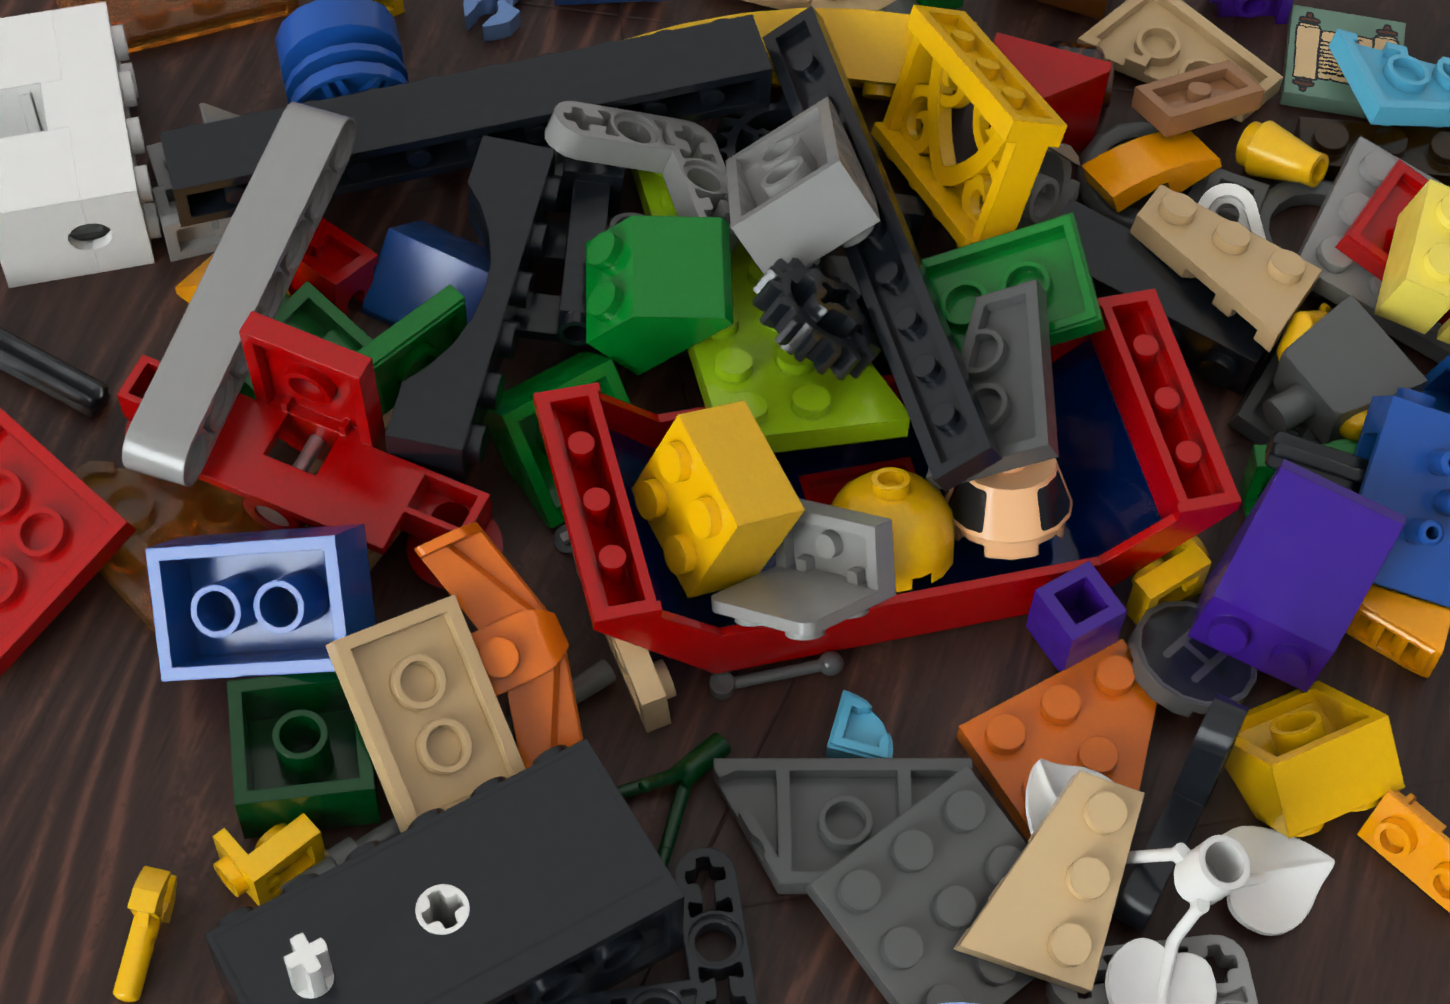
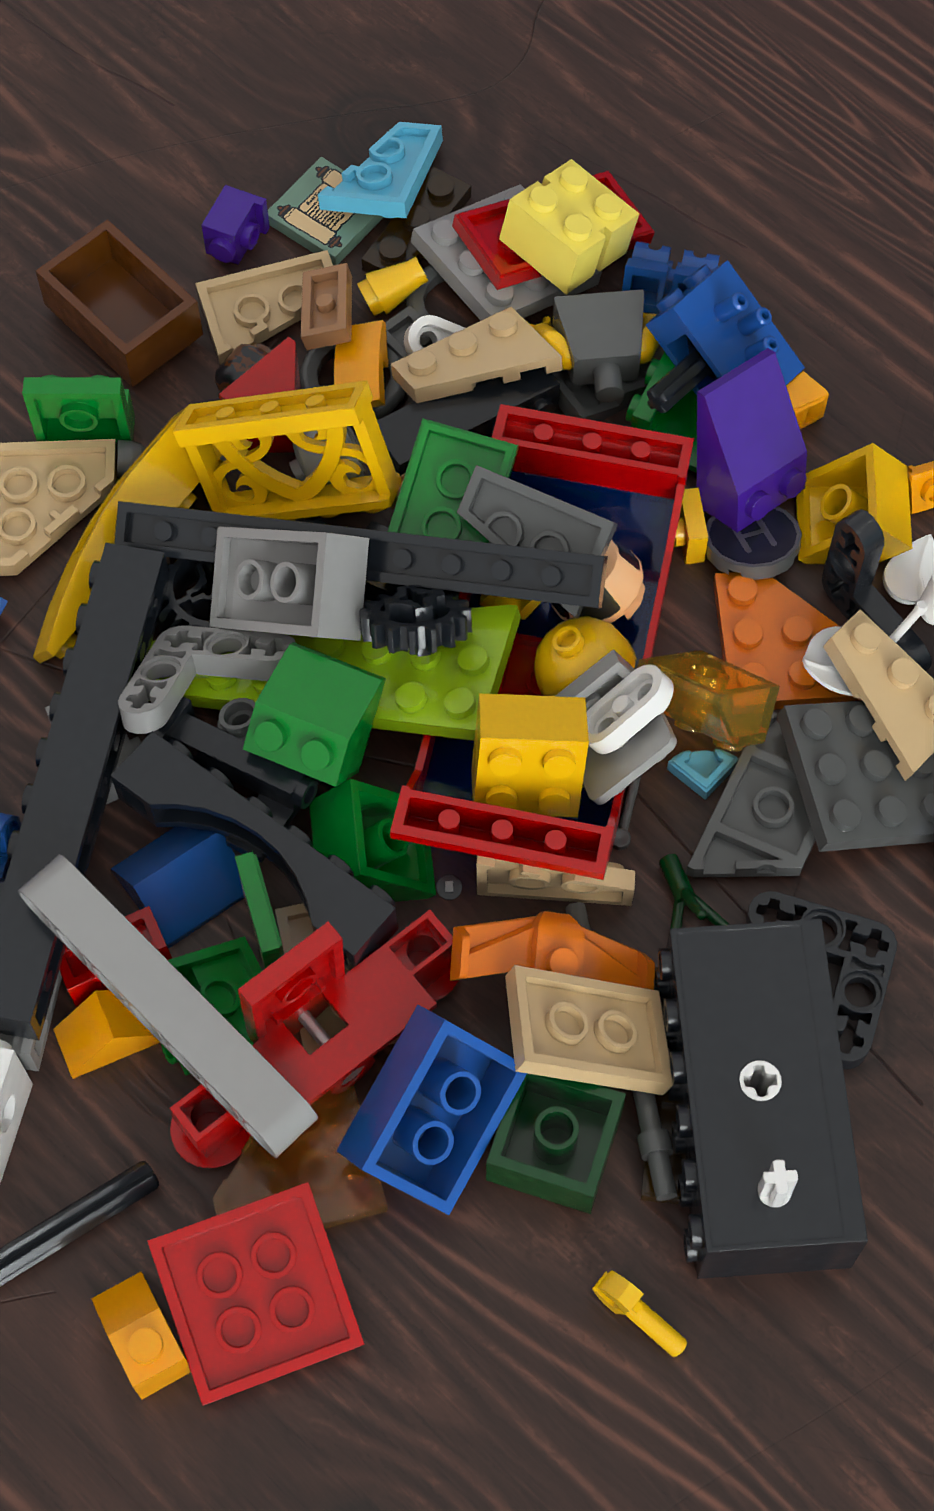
camera: 60 degrees left, 5 degrees up
(277, 858) = (625, 1190): yellow bracket -> none
(830, 571) = (628, 708): none -> white plate
(932, 678) = (717, 698): none -> clear yellow slope
(1075, 616) = (696, 590): dark purple brick -> none

